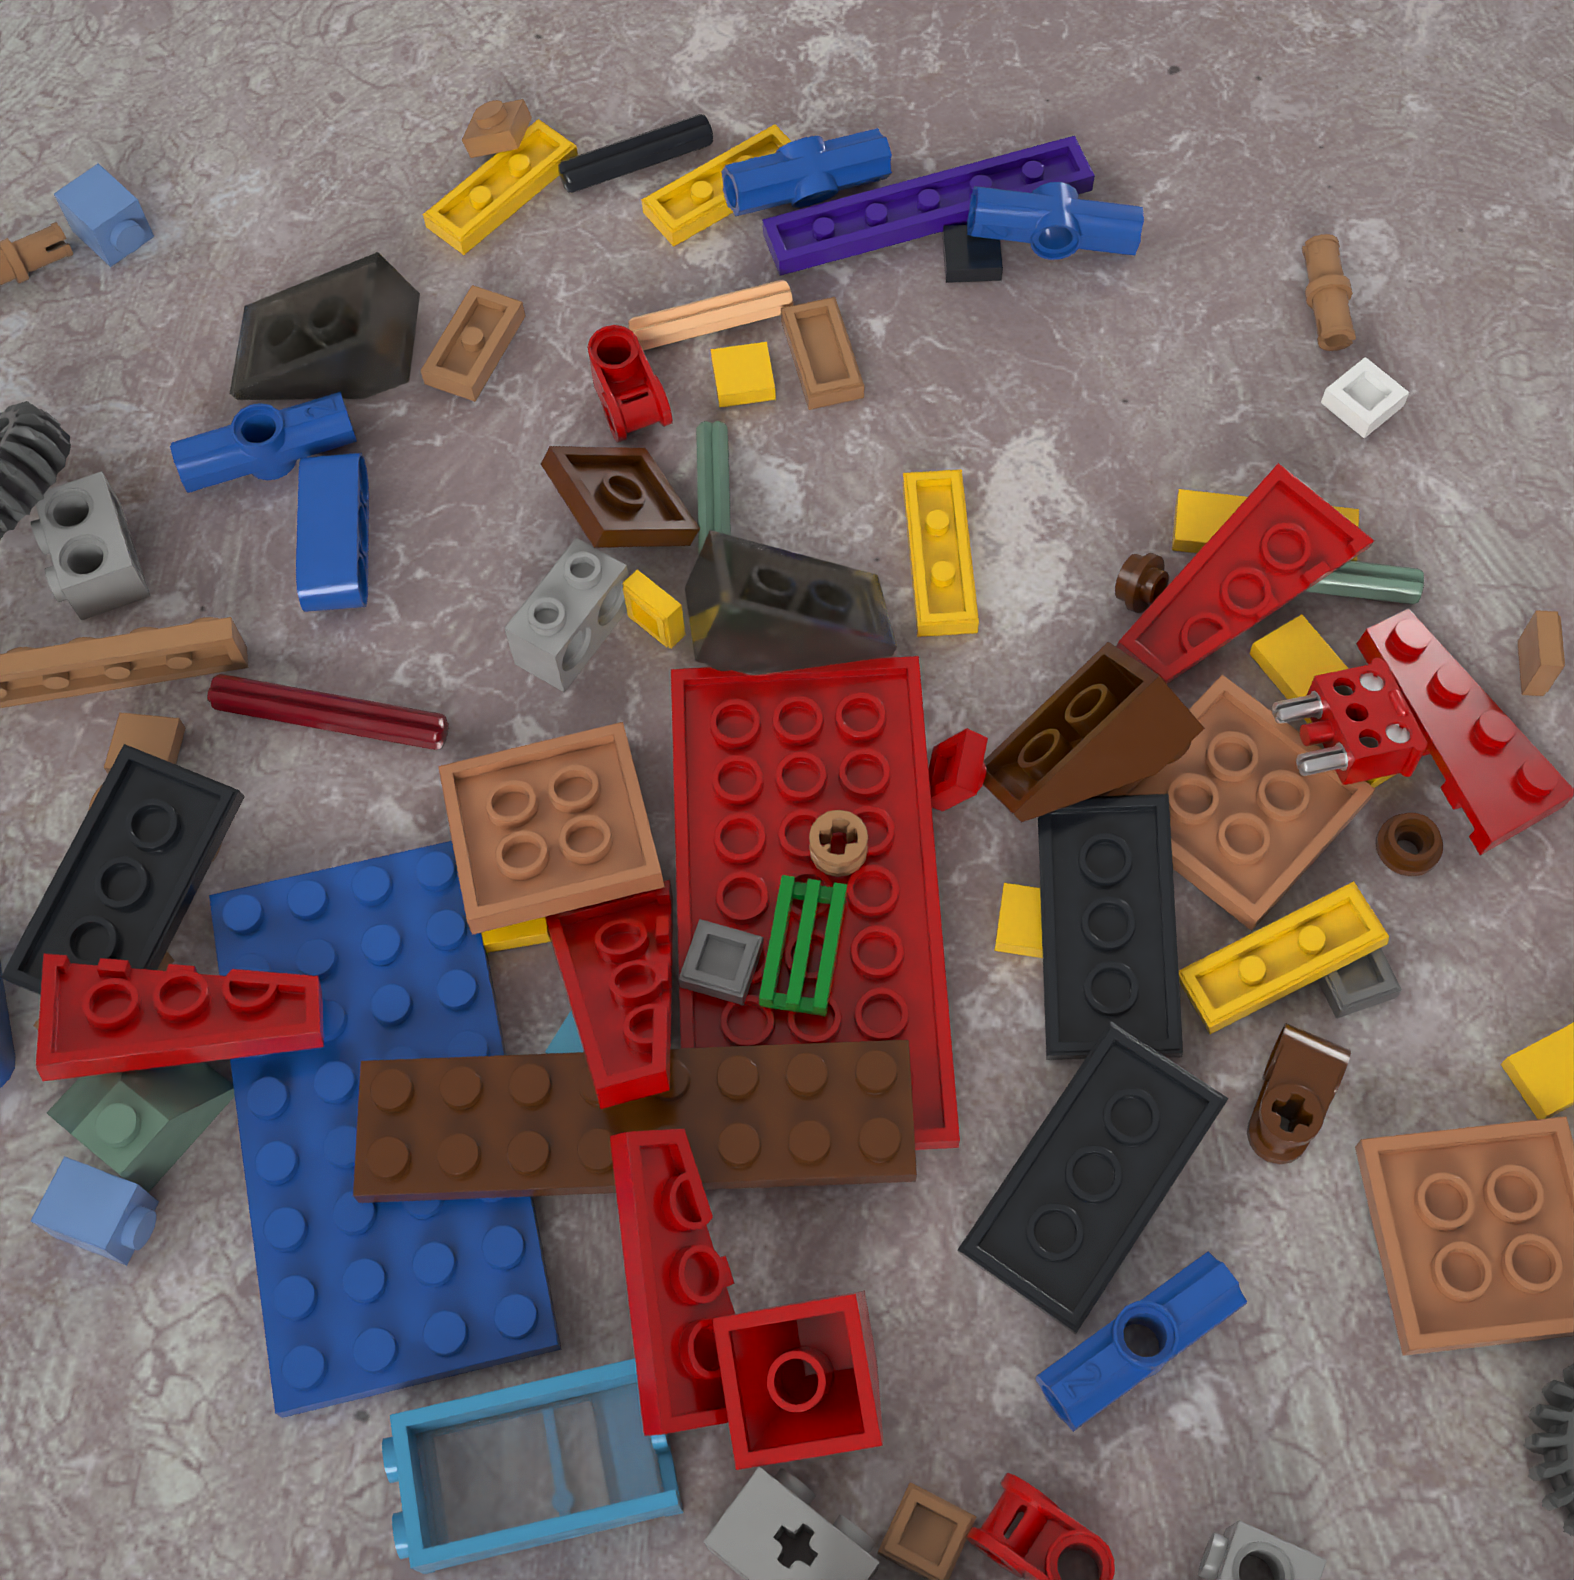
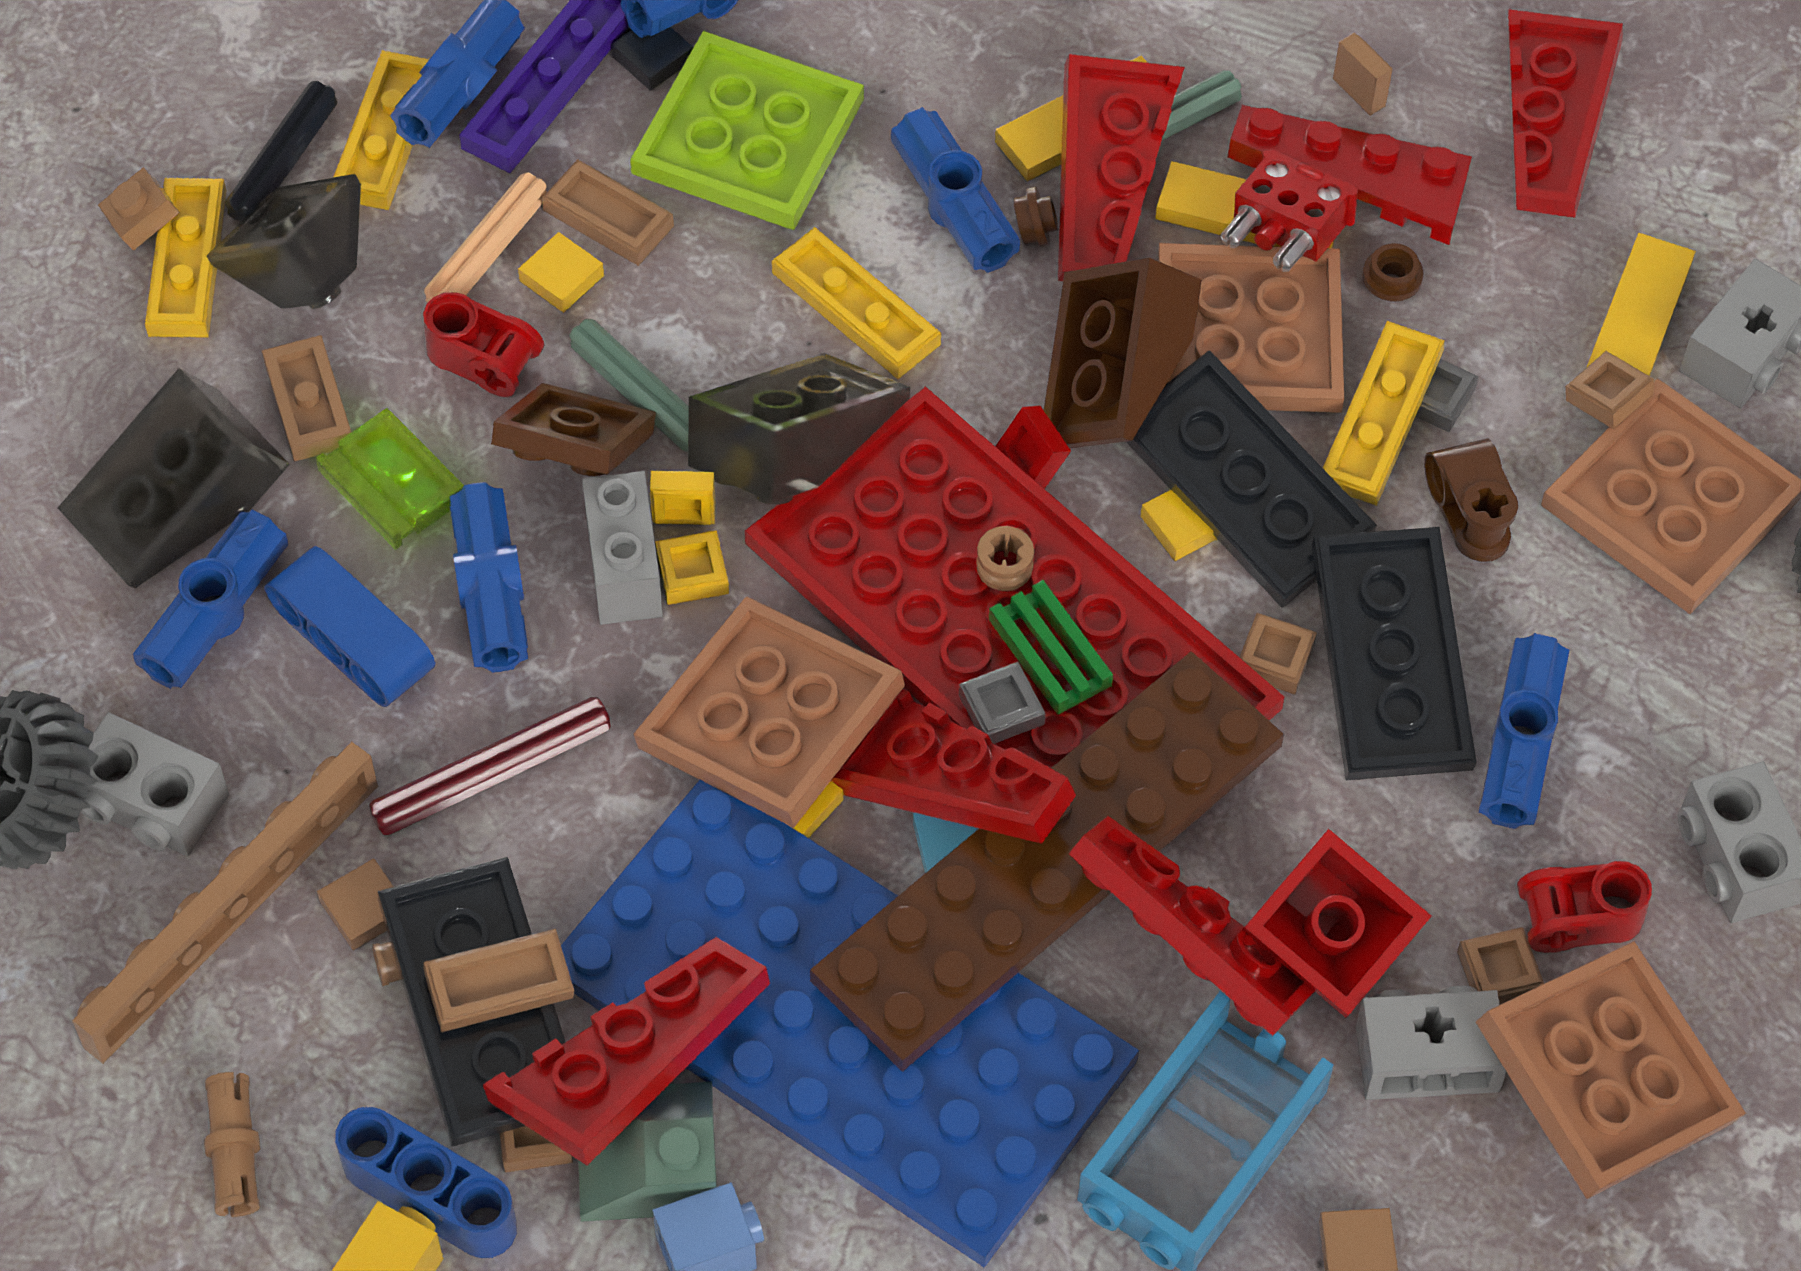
camera: 45 degrees left, 5 degrees down
(136, 881) = (498, 980): none -> medium nougat tile
(460, 567) = (488, 577): none -> blue piece
(470, 443) = (390, 477): none -> clear neon green plate
(570, 225) = (296, 243): none -> clear smoke slope
(617, 669) = (692, 567): none -> yellow tile
(983, 359) = (747, 130): none -> lime plate
(999, 1095) = (1278, 651): none -> medium nougat tile
(1089, 539) = (955, 190): none -> blue piece
(1508, 1093) = (1609, 389): none -> medium nougat tile

